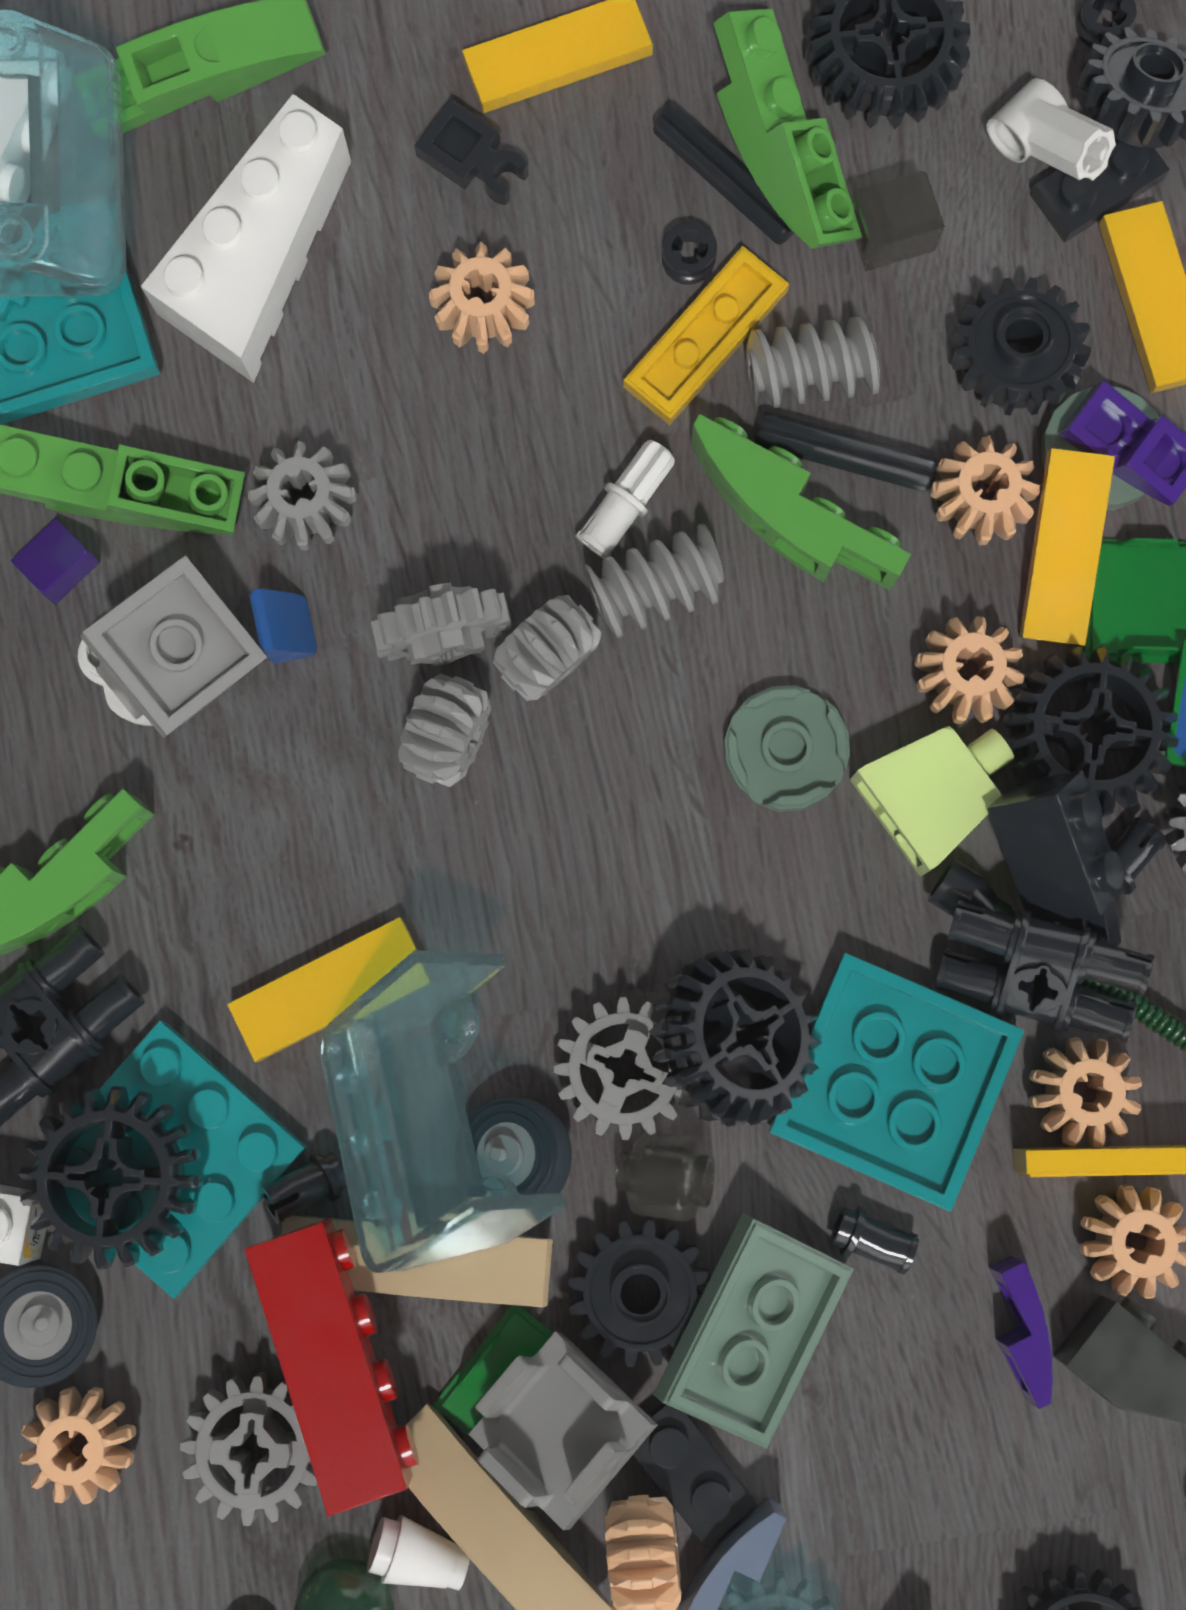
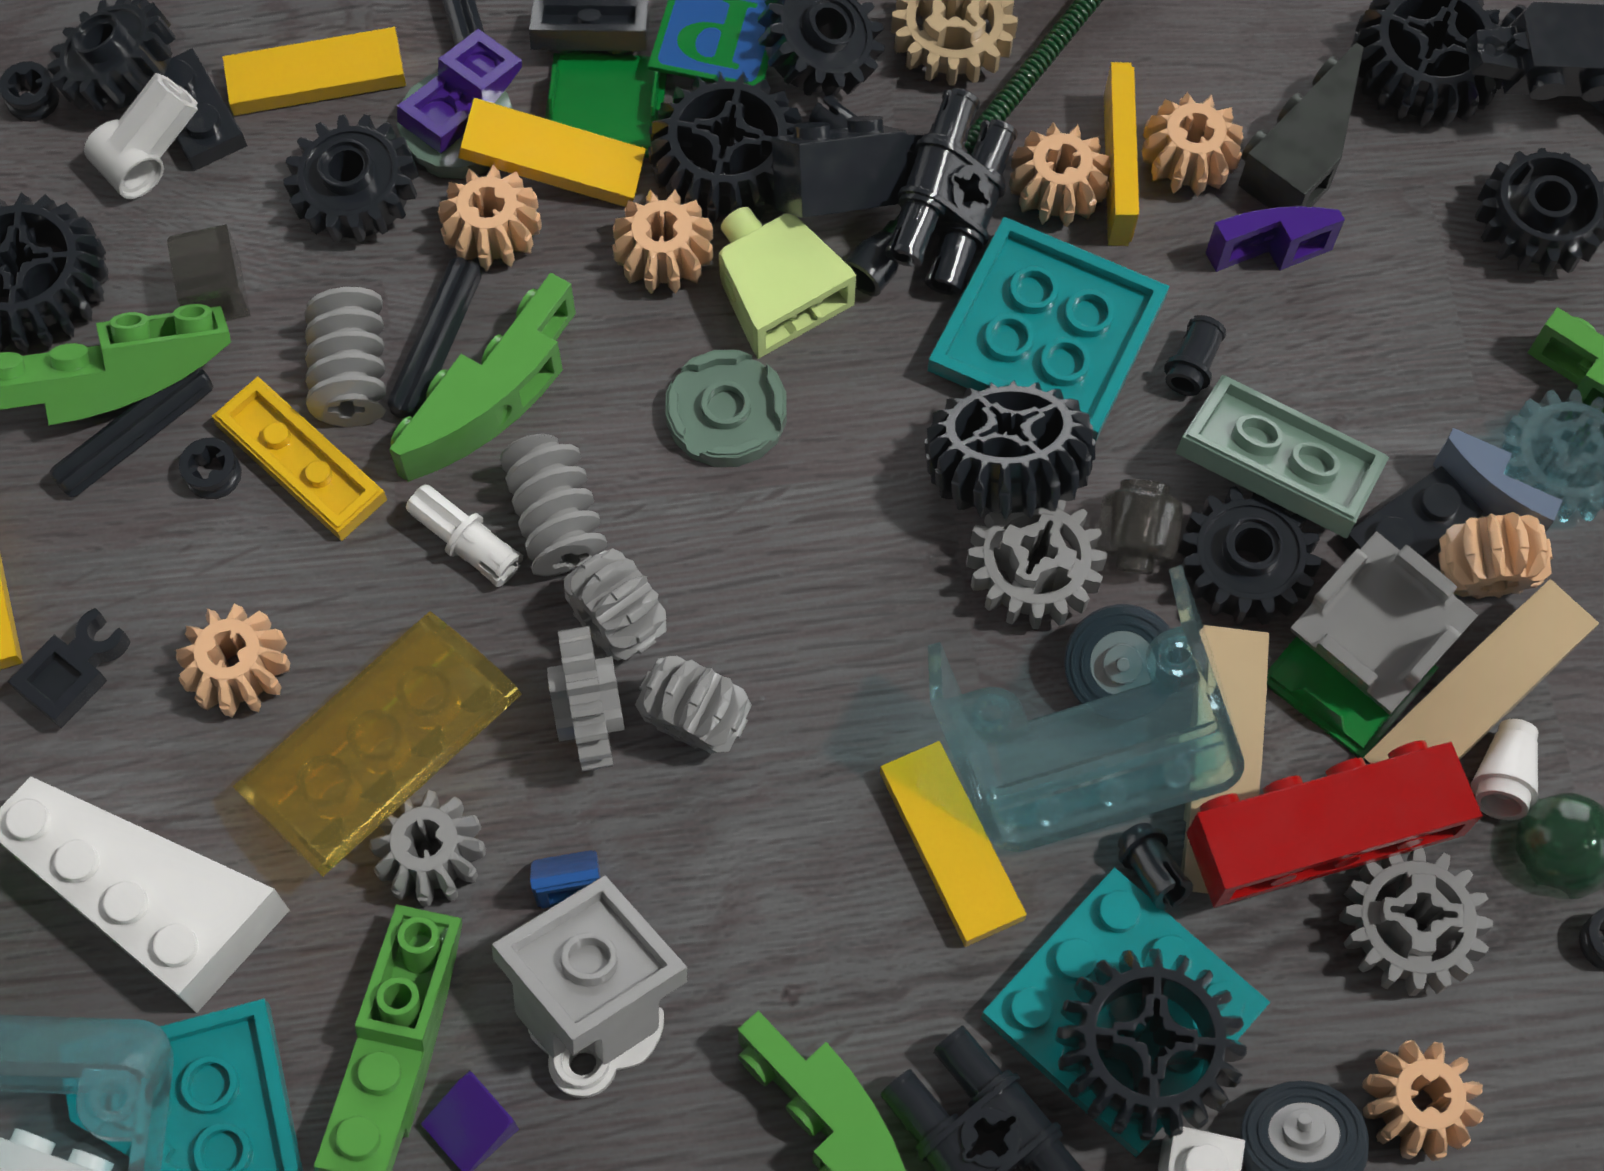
camera: 90 degrees left, 15 degrees down
(398, 438) = (376, 742): none -> clear yellow slope

